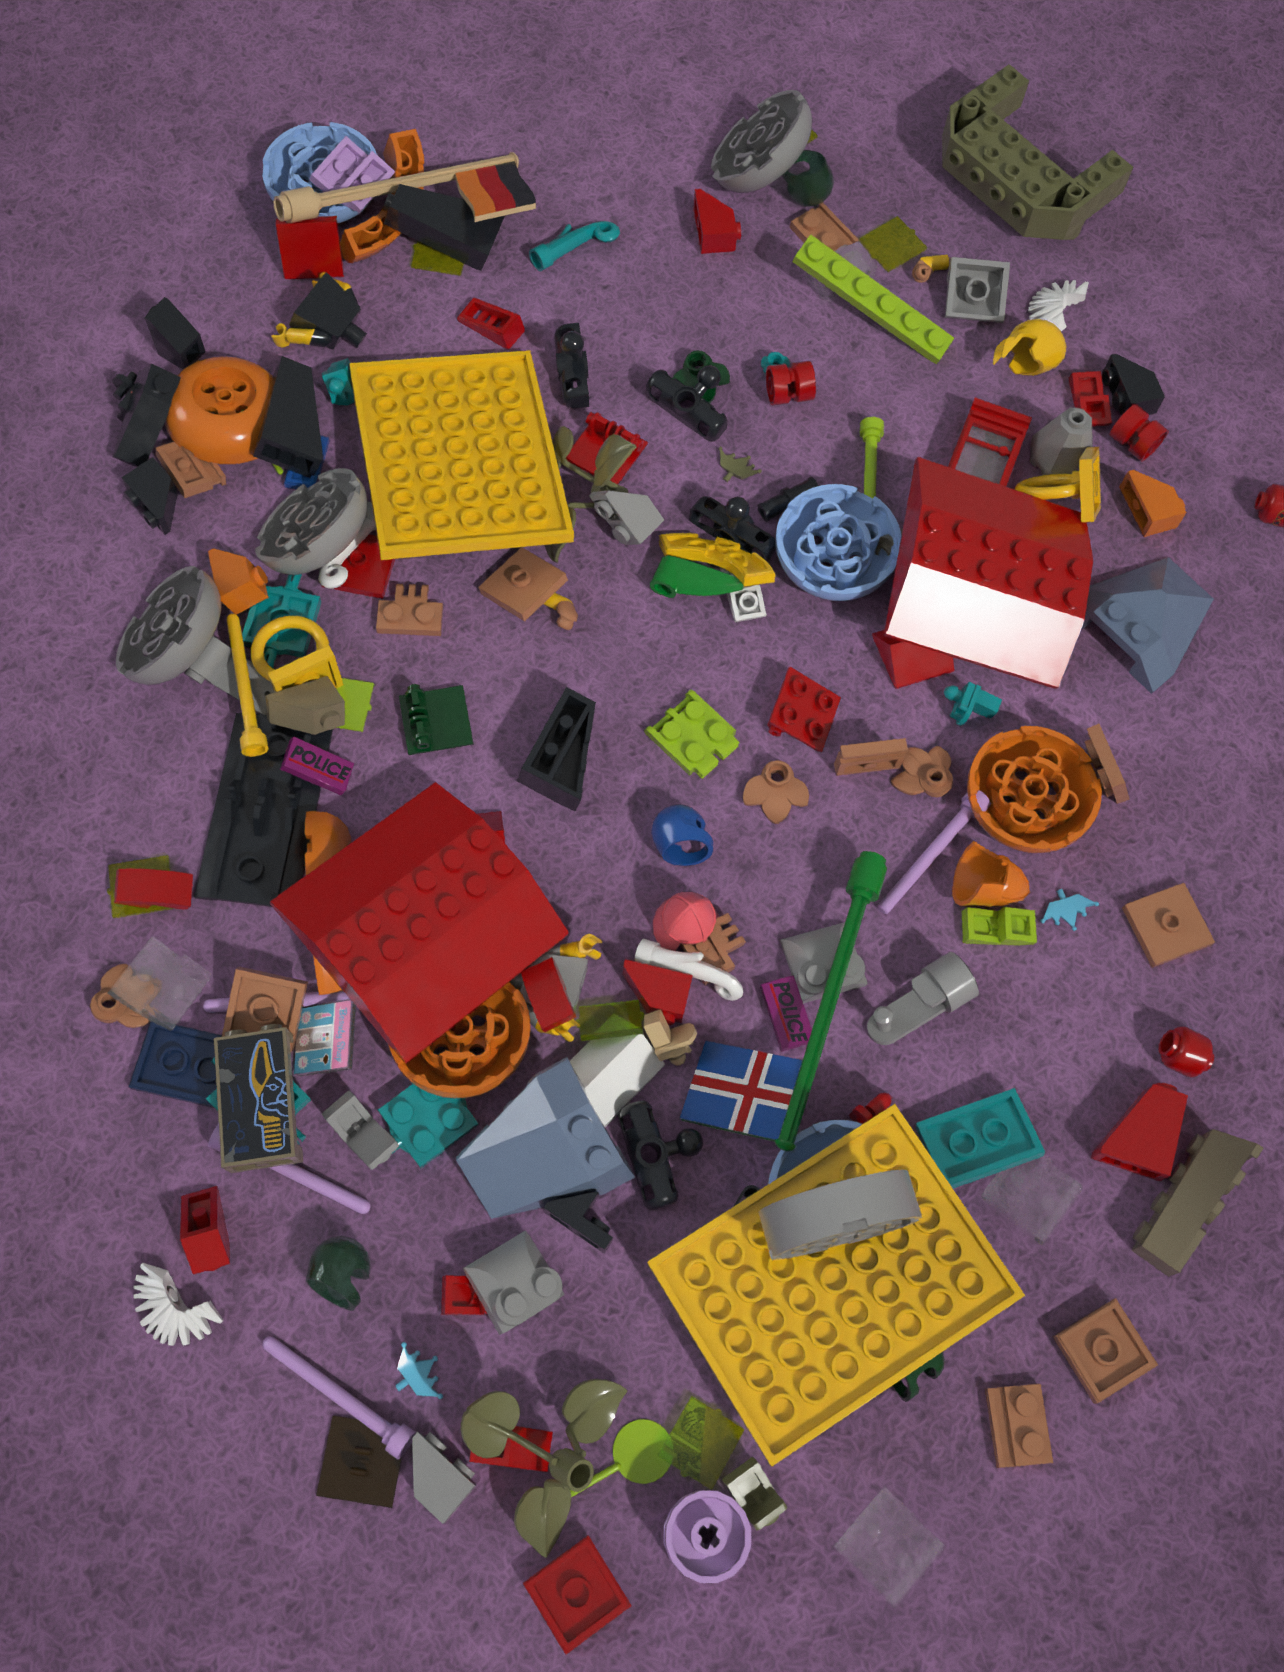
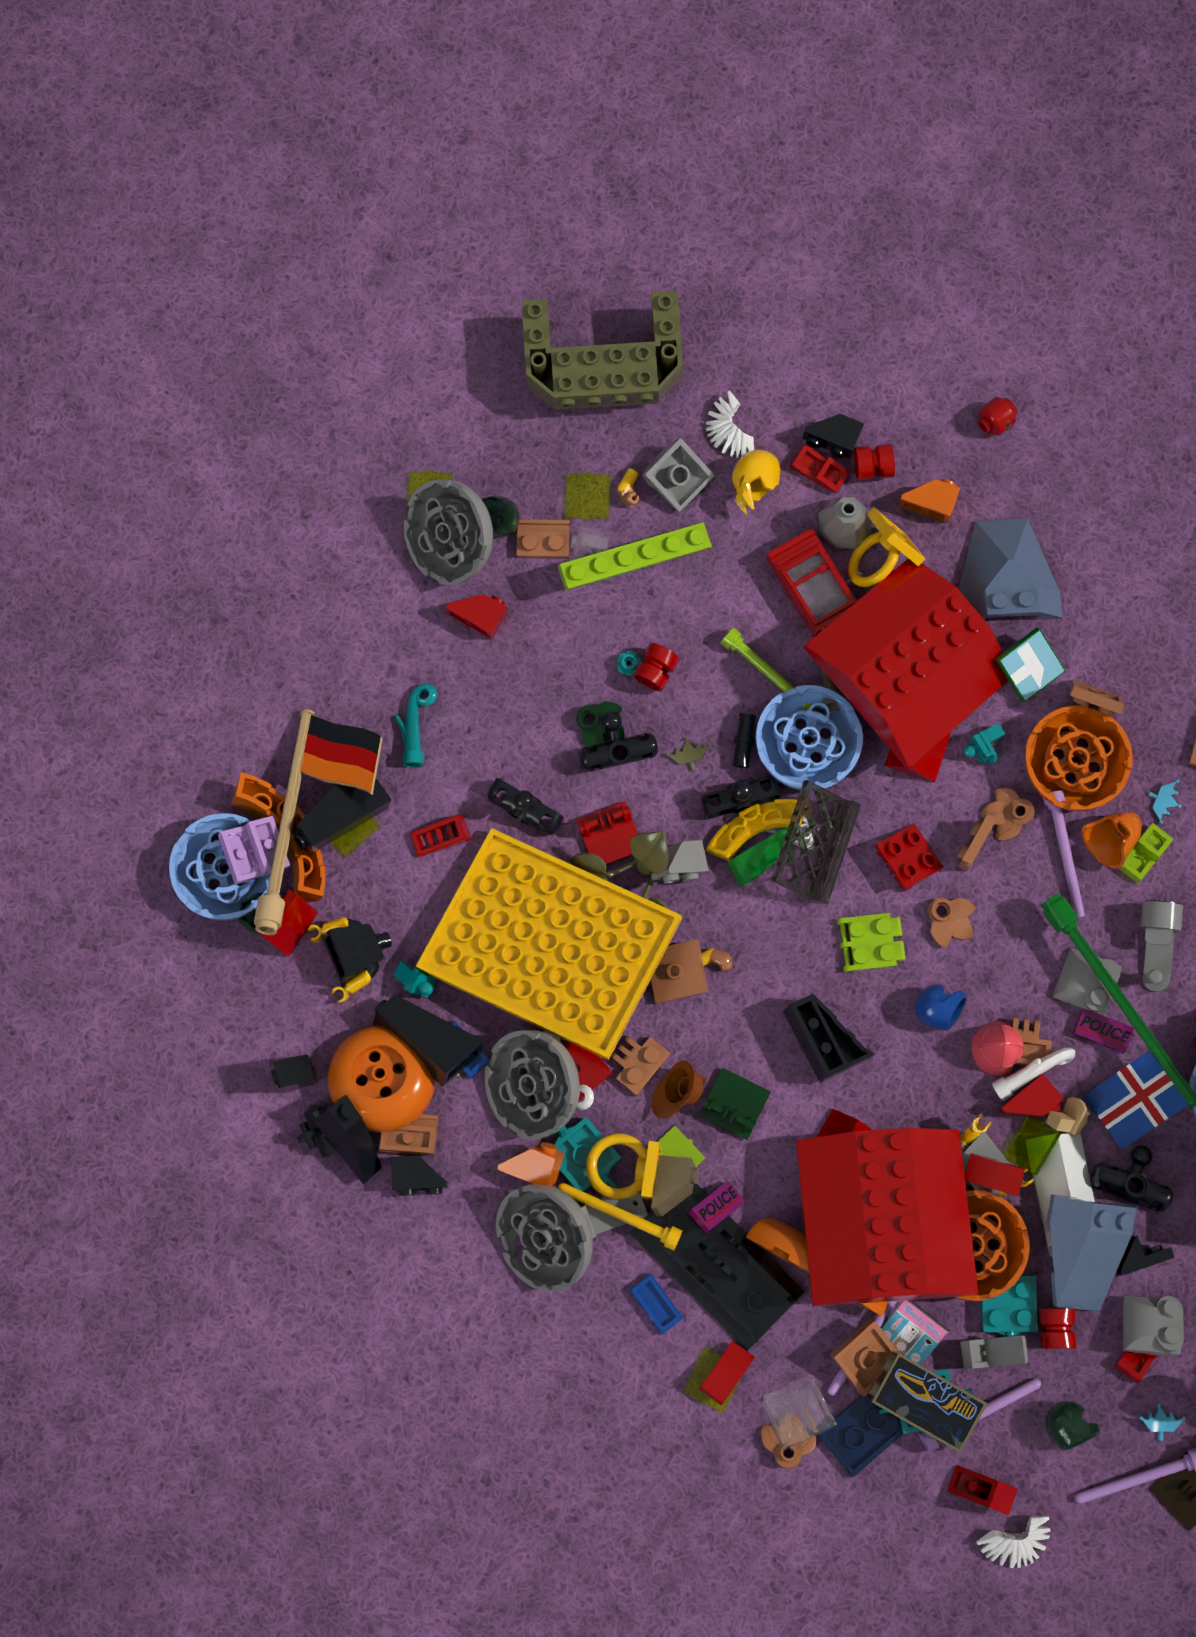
camera: 45 degrees left, 10 degrees up
(181, 781) = (656, 1303): none -> blue tile
(411, 661) = (677, 1089): none -> dark orange piece
(437, 1183) = (1057, 1328): none -> red wheel
(753, 635) = (829, 850): none -> clear smoke fence
(1082, 688) = (1030, 664): none -> tile

